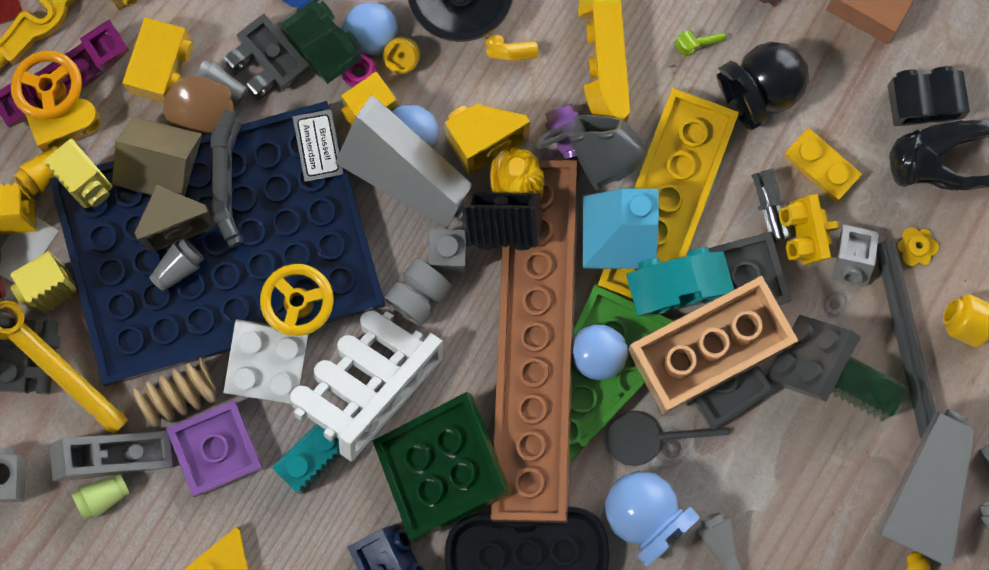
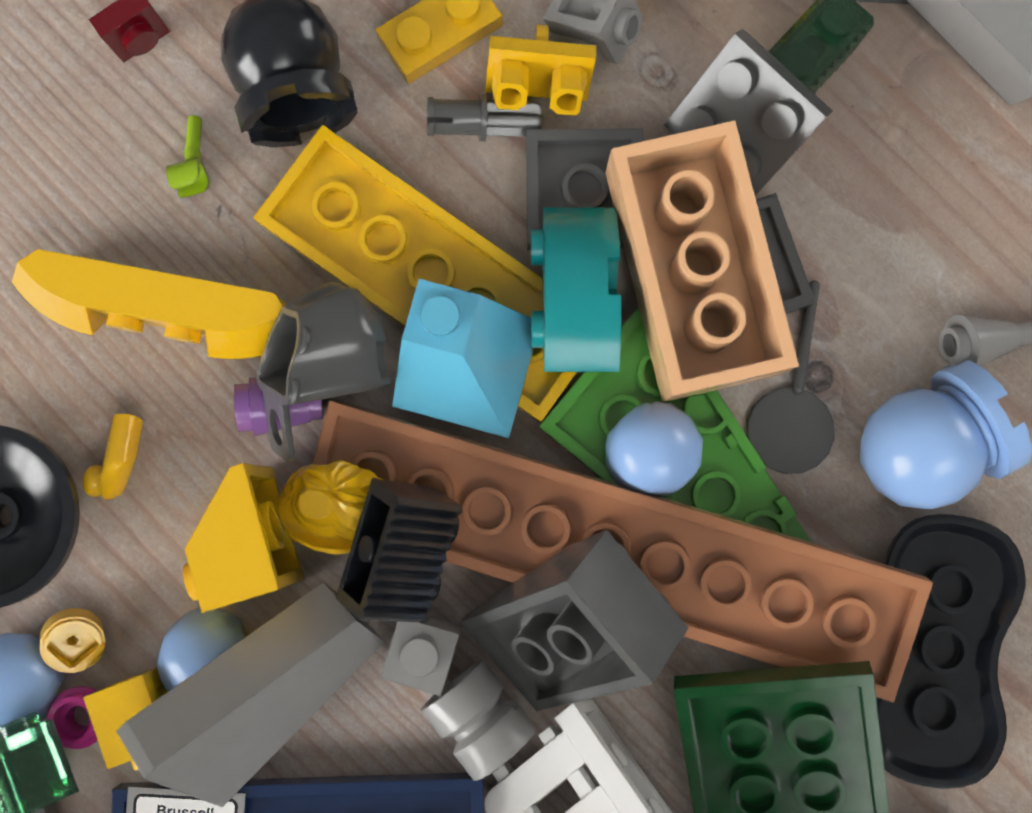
camera: 75 degrees left, 5 degrees up
(487, 328) = (578, 626): none -> dark grey slope

